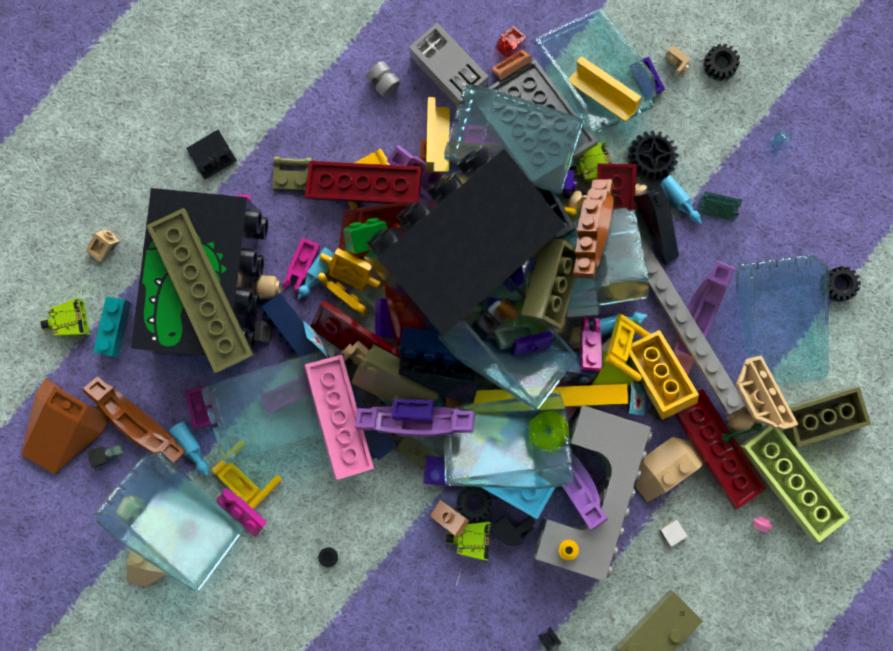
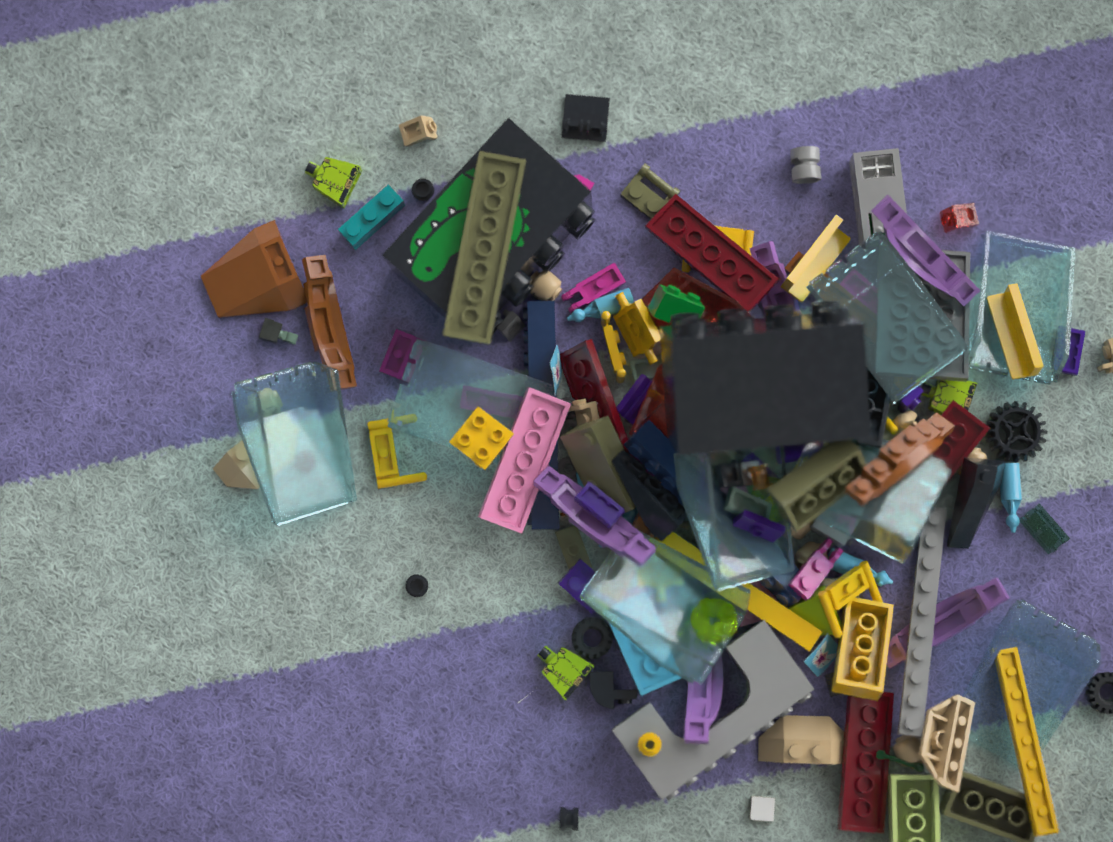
camera: 40 degrees right, 0 degrees up
(132, 282) = (422, 189): none -> black plate
(192, 449) = (364, 378): medium azure wheel -> none
(241, 511) = (367, 482): dark pink hinge -> none
(297, 424) = (481, 438): none -> yellow hinge
(449, 518) = (558, 634): nougat plate -> none
(505, 79) = (922, 253): none -> medium lavender piece
(511, 64) = (948, 240): nougat plate -> none
(816, 358) = (1026, 743): none -> yellow tile

